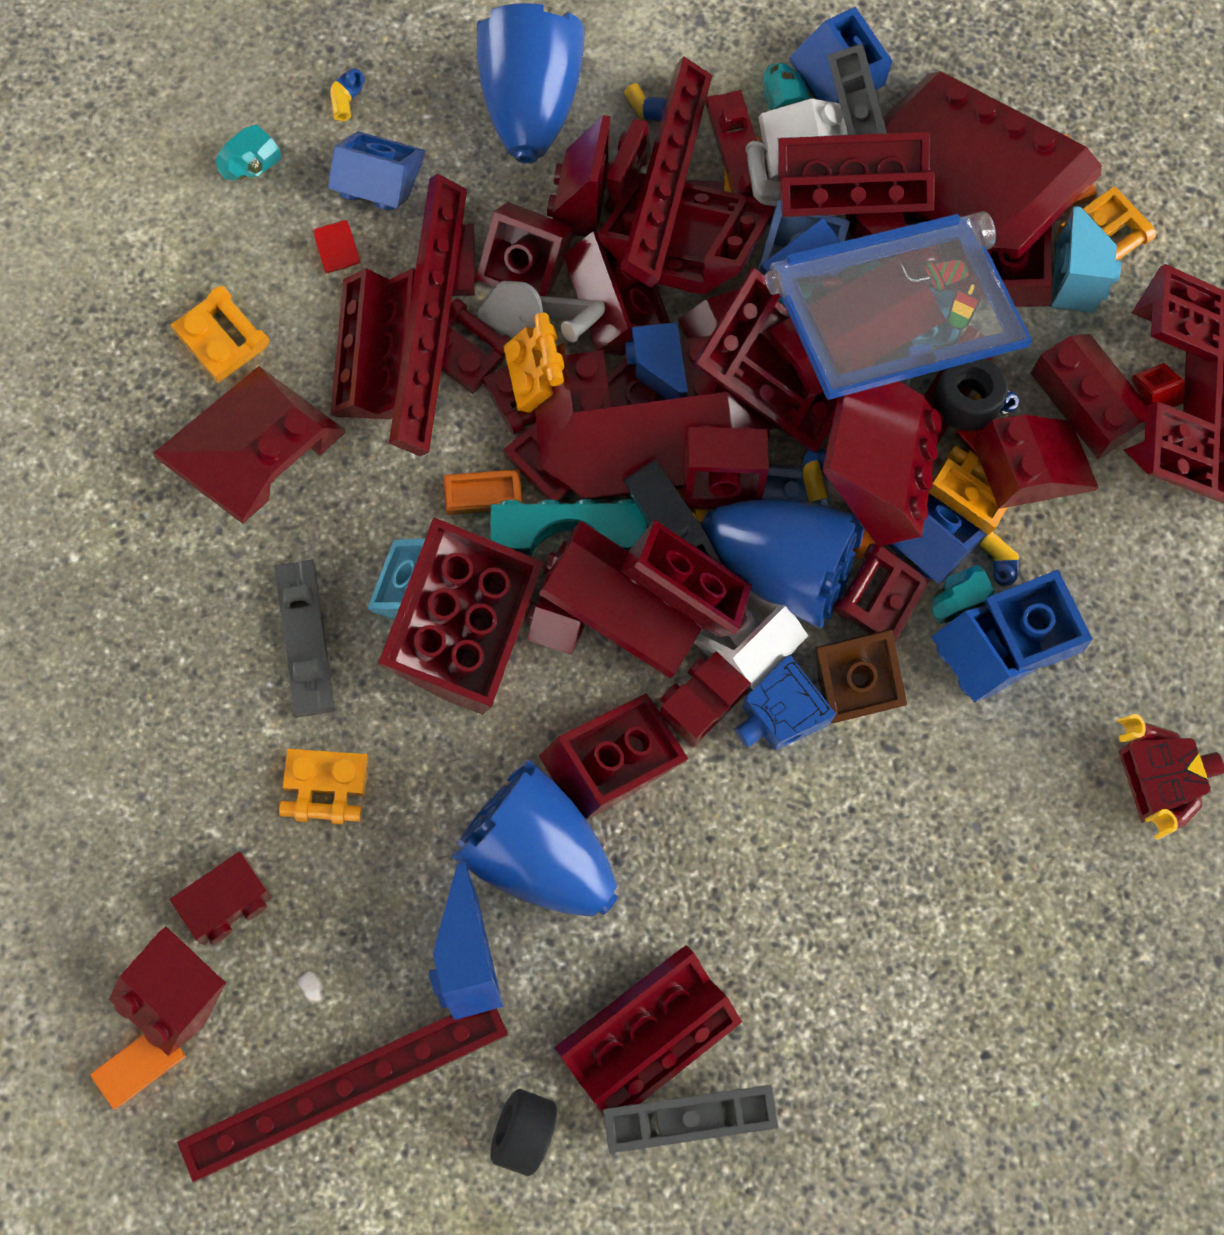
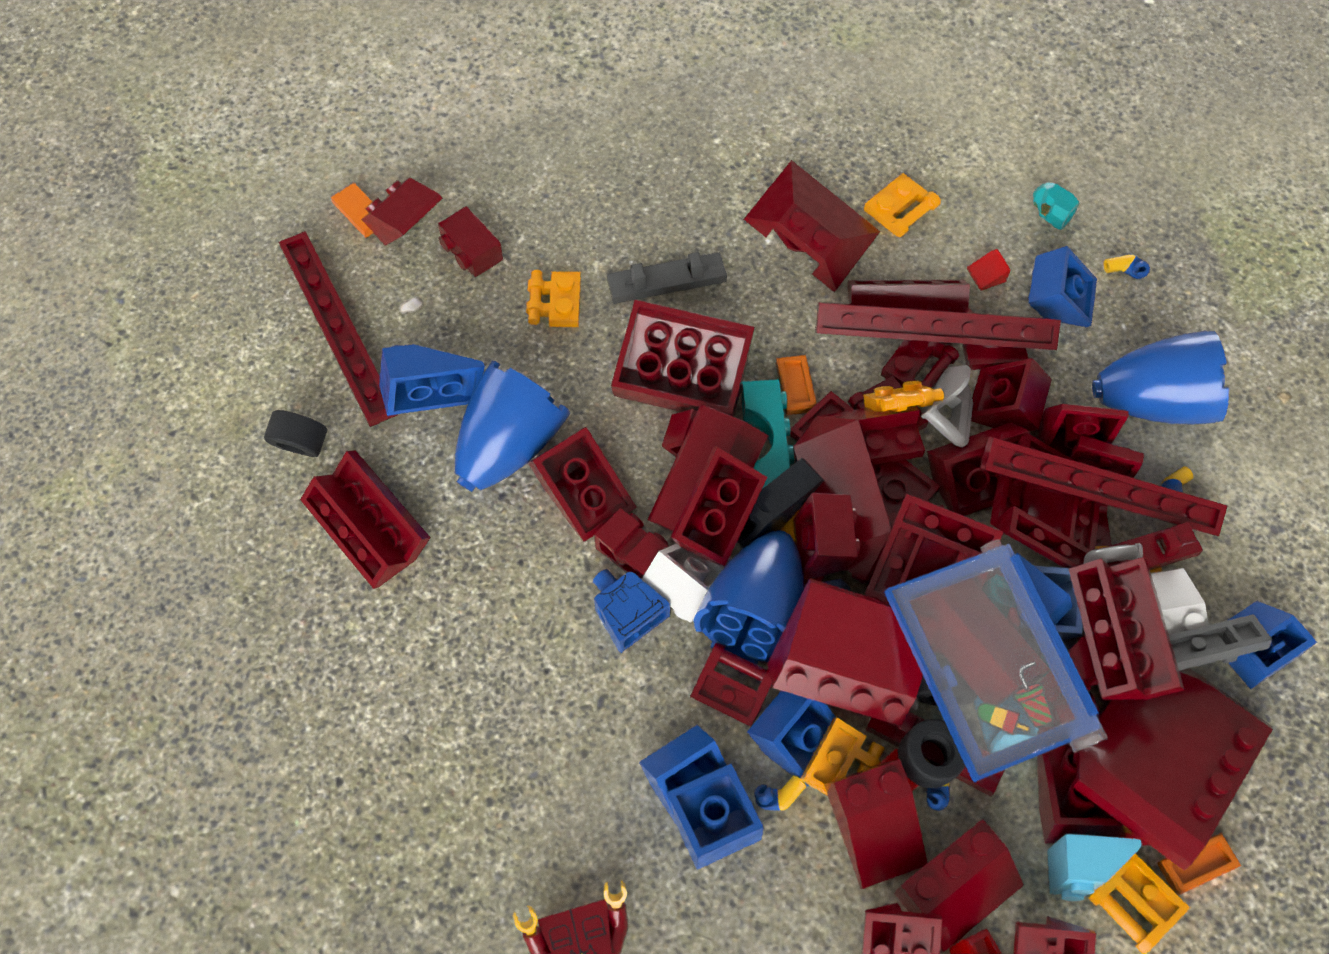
camera: 90 degrees right, 10 degrees down
(658, 359) = (927, 483): blue slope -> none
(690, 1118) = (296, 545): dark grey hinge -> none
(783, 86) = (1222, 596): teal rock -> none
(860, 675) = (659, 670): reddish brown slope -> none
(961, 593) = (741, 752): teal rock -> none

